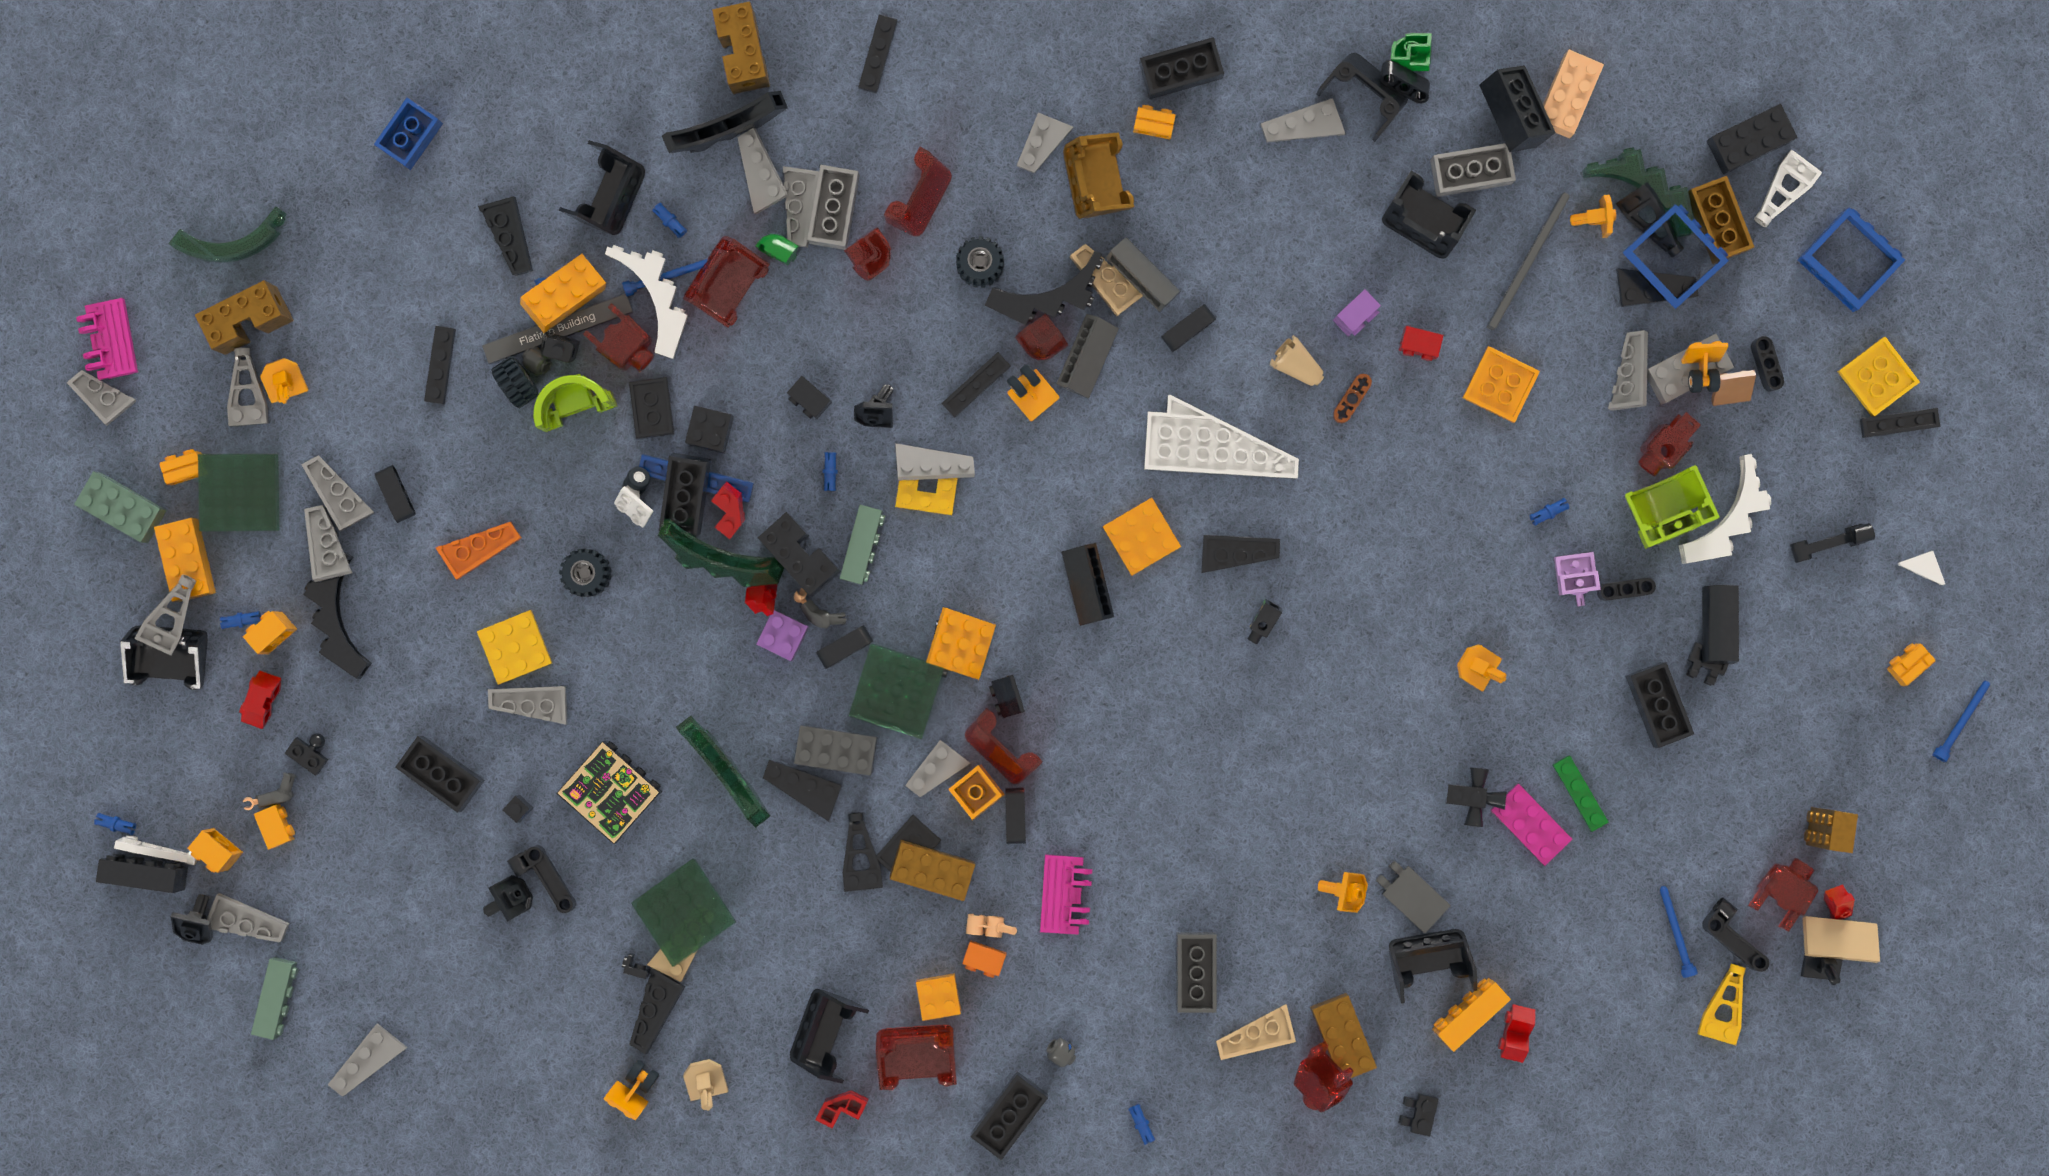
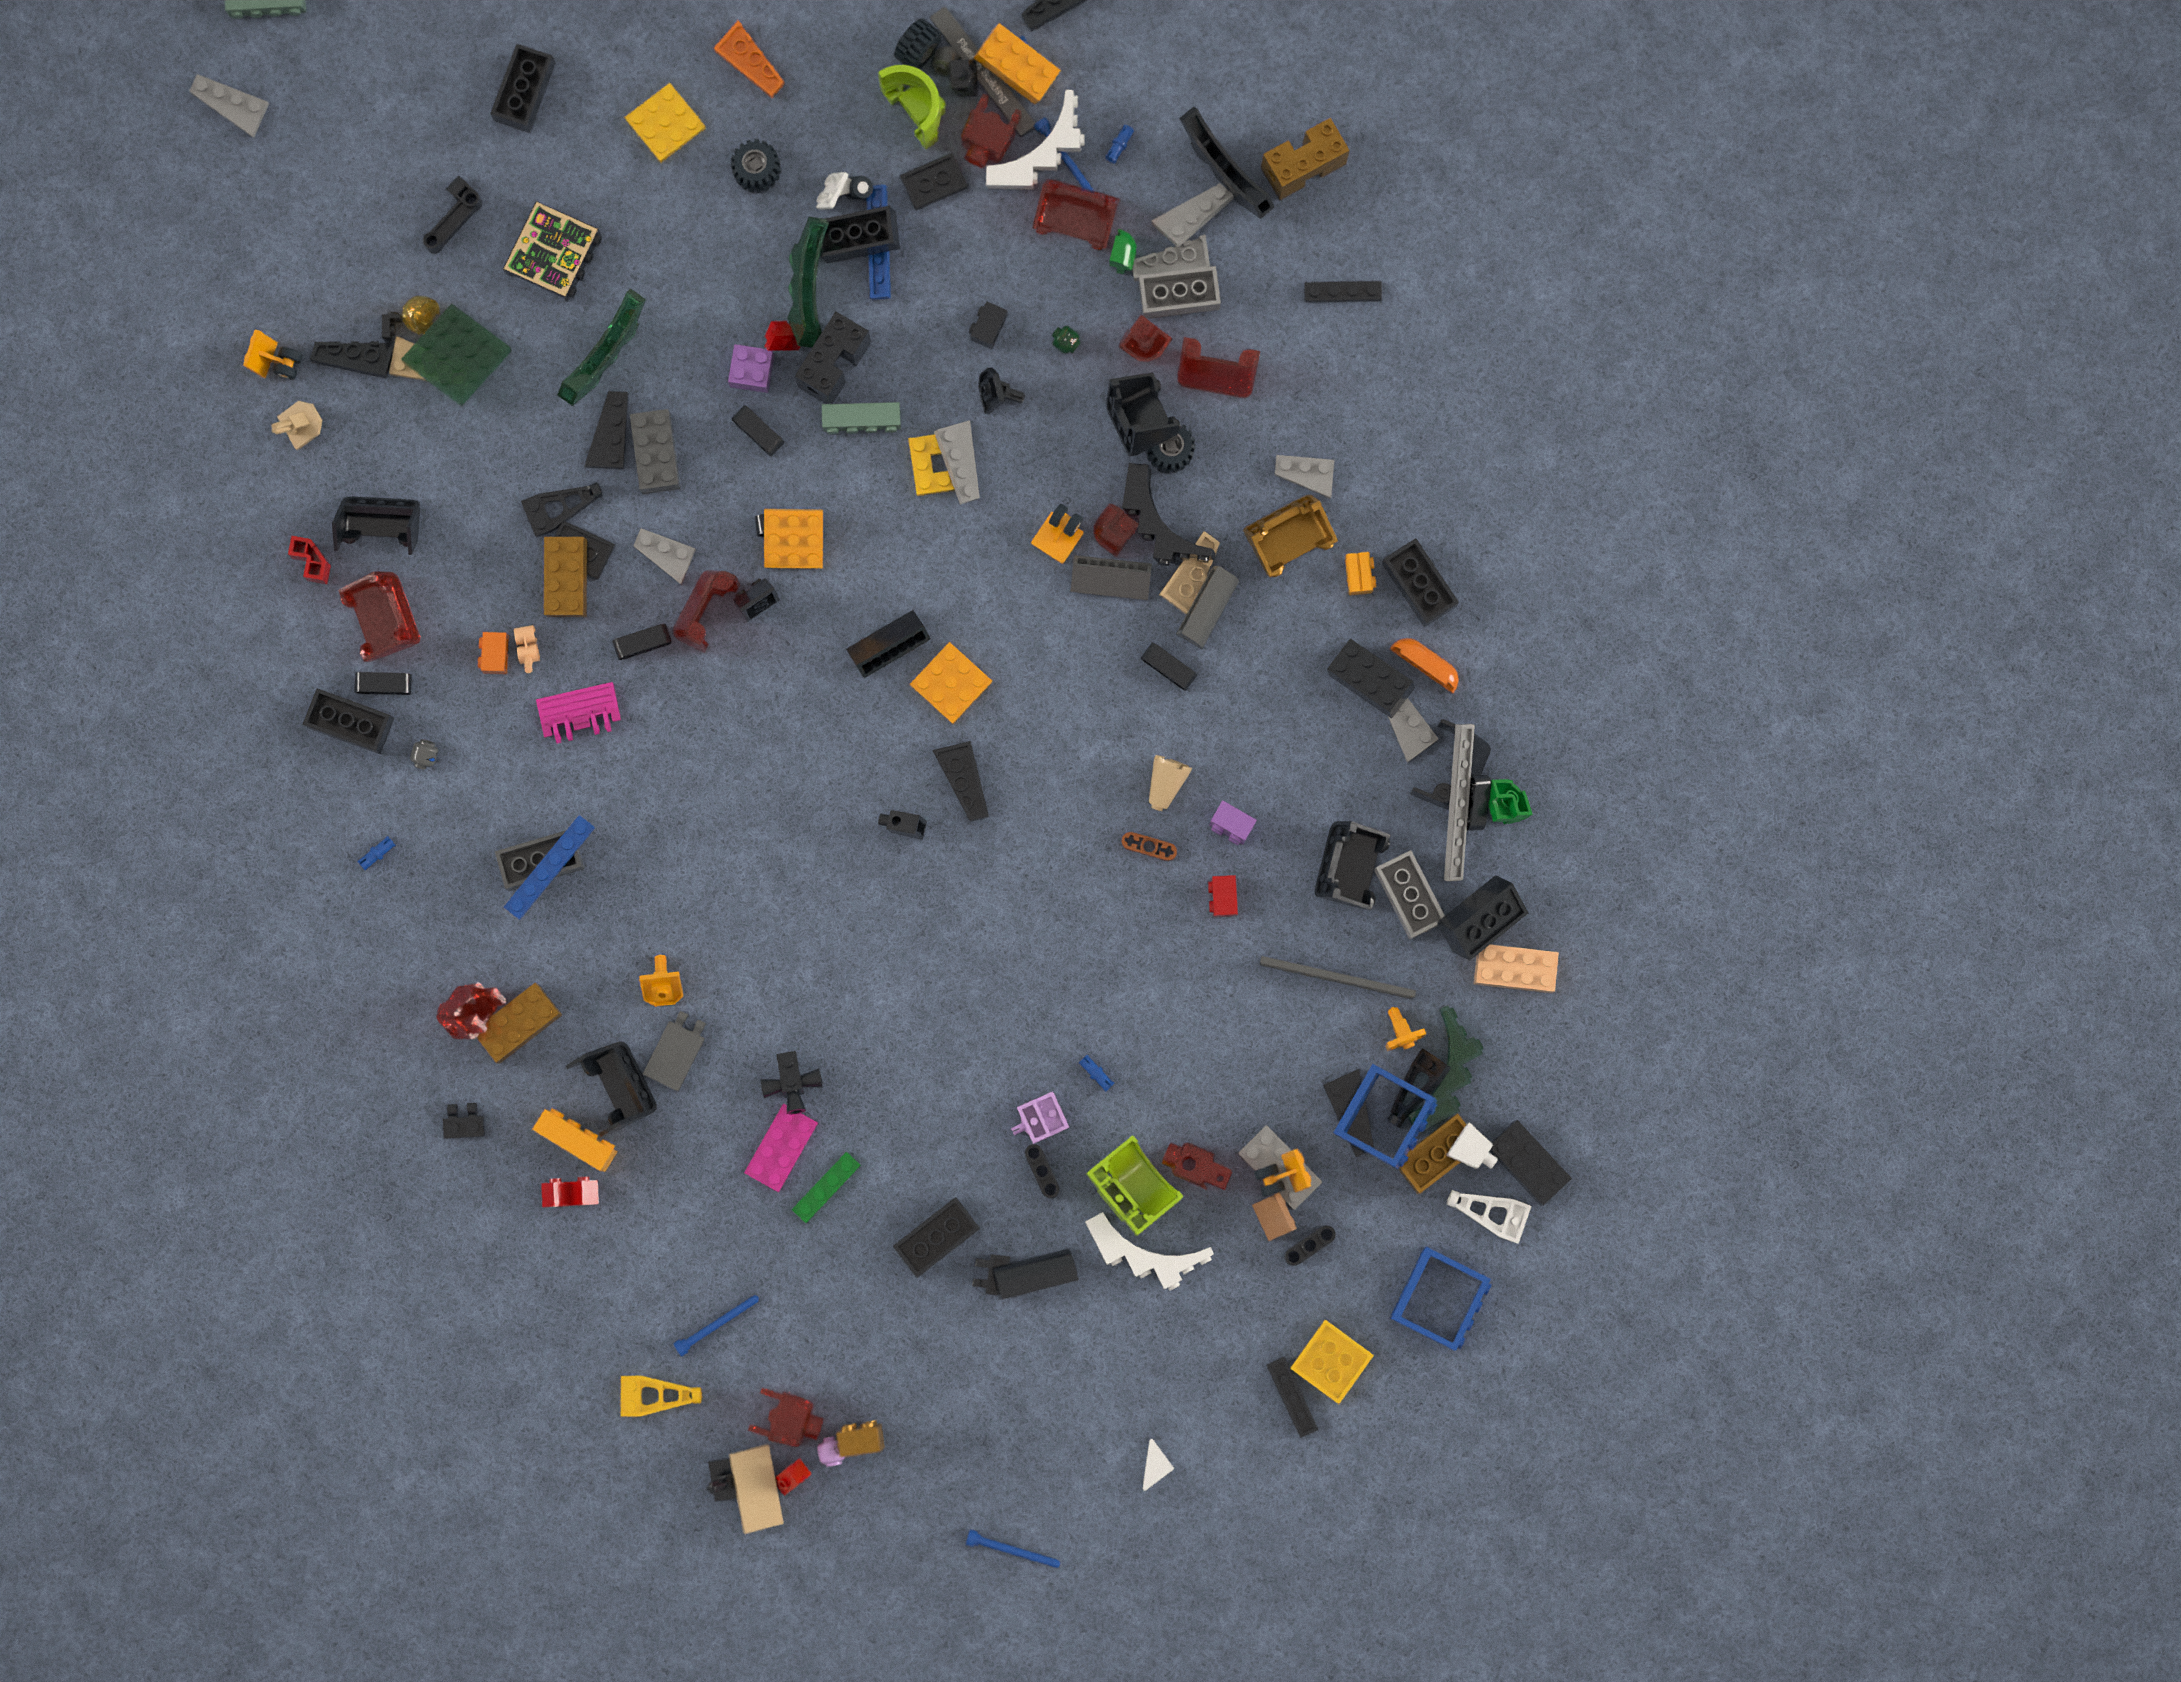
camera: 70 degrees right, 5 degrees down
(510, 897) = (424, 188): black piece -> none
(517, 808) = (511, 170): black brick -> none
(535, 702) = (618, 160): light grey wing -> none
(614, 194) = (1127, 85): black windscreen -> none
(632, 936) = (419, 313): none -> clear yellow cylinder
(709, 429) = (929, 240): black brick -> none
(730, 501) = (864, 280): red brick -> none
(815, 615) = (779, 396): dark grey arm -> none
(830, 471) = (923, 366): blue pin -> none
(845, 329) = (1065, 339): none -> dark green head
(896, 691) = (728, 491): clear green plate -> none
(938, 997) = (444, 620): light orange brick -> none
(942, 280) = (1139, 413): none -> black windscreen
(976, 384) = (1050, 479): black plate -> none
(976, 792) = (654, 596): light orange brick -> none
(981, 1072) = (383, 683): none -> black beam
(1200, 443) = (1059, 711): white wing -> none
(1209, 965) = (549, 867): none -> blue plate
(1256, 86) = (1427, 662): none -> orange brick
(1259, 142) = (1371, 678): none -> black brick
(1264, 1033) = (498, 945): tan wing -> none
(1402, 96) = (1459, 802): none -> light grey tile
(1479, 666) = (921, 1048): light orange piece -> none
(1501, 384) = (1207, 987): light orange plate -> none
(1632, 374) = (1248, 1115): light grey wing -> none
(1722, 913) = (725, 1377): black piece -> none
(1729, 185) = (1472, 1148): none -> white torso
(1826, 860) = (829, 1452): none -> lavender head
(1854, 536) = (1165, 1384): black piece -> none
(1910, 664) = (1053, 1479): light orange brick -> none

